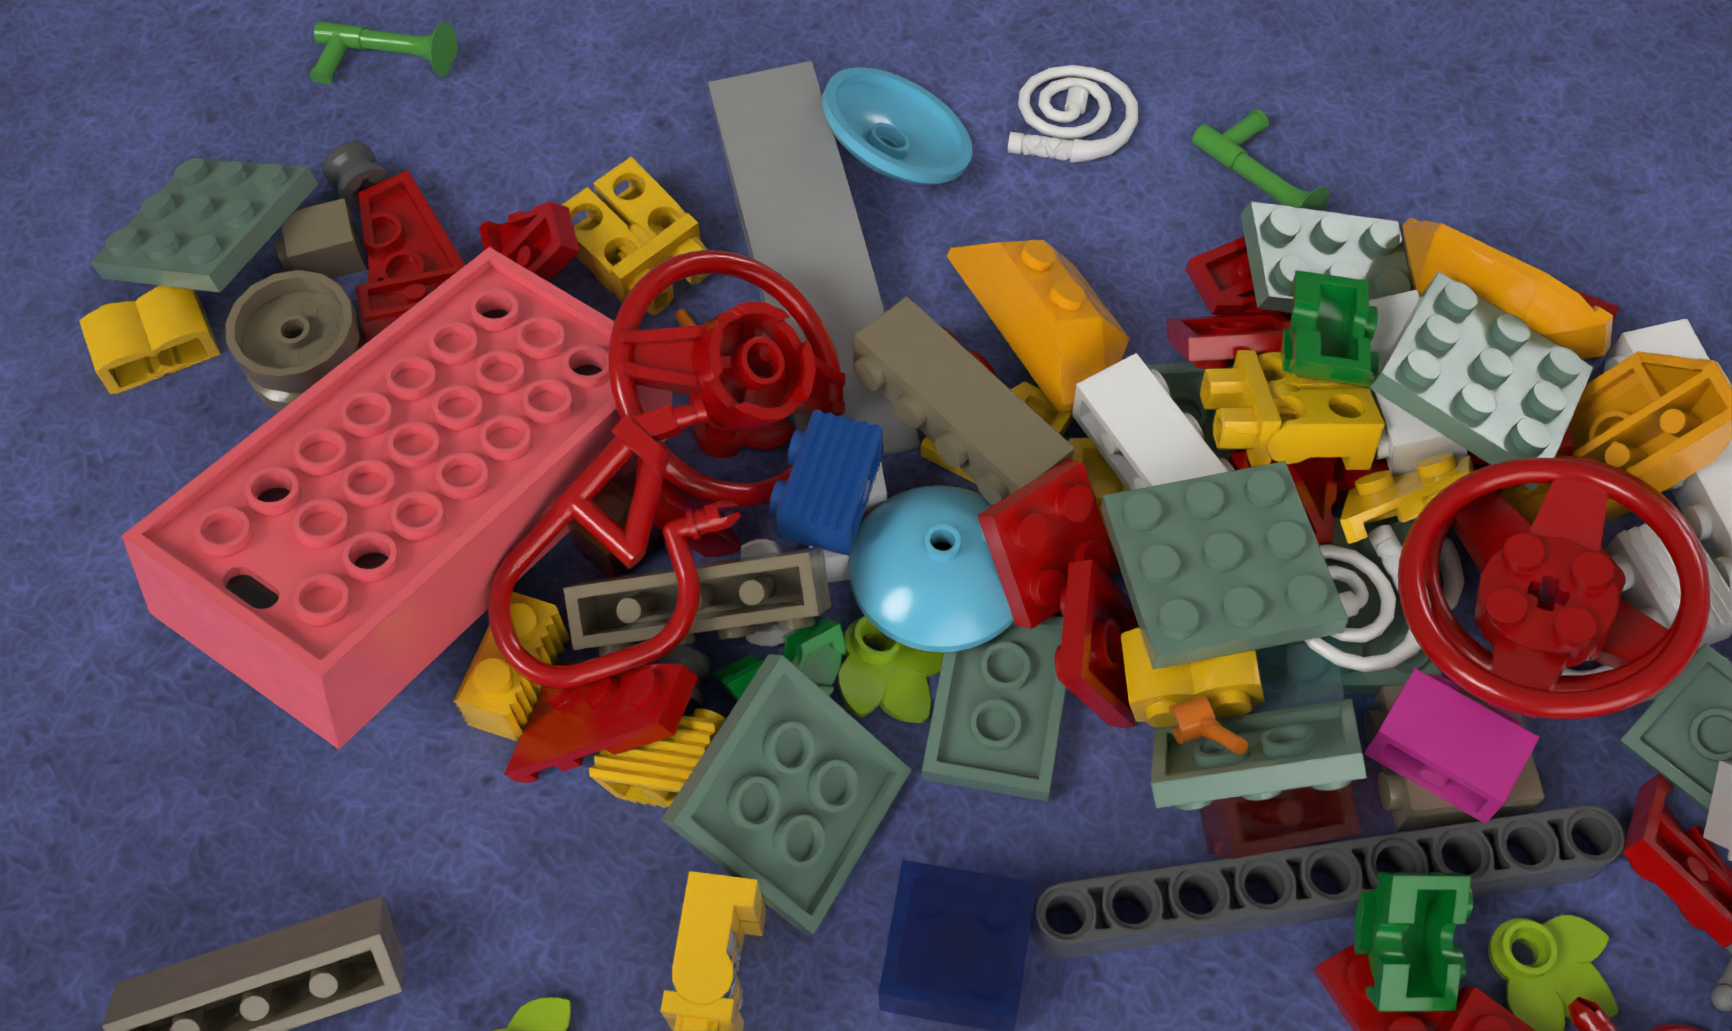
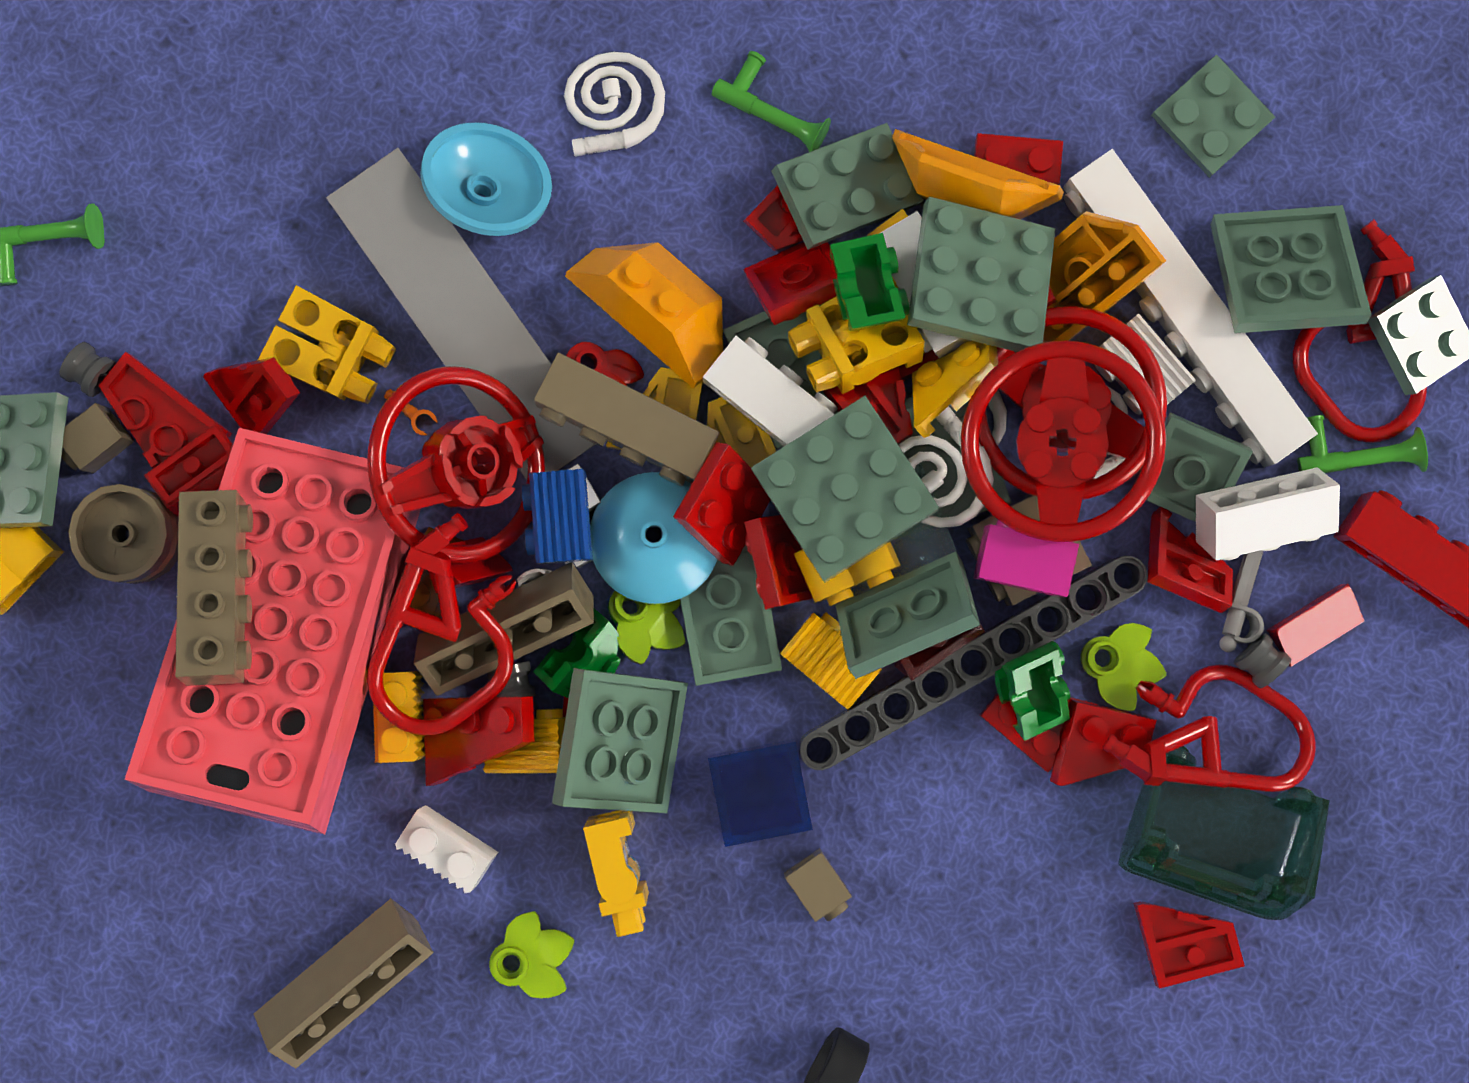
camera: 25 degrees left, 25 degrees up
(356, 372) = (212, 588): none -> dark tan brick
(489, 860) = (446, 848): none -> white brick
(1115, 805) = (820, 655): none -> yellow brick
(1198, 720) = (860, 605): orange hand -> none

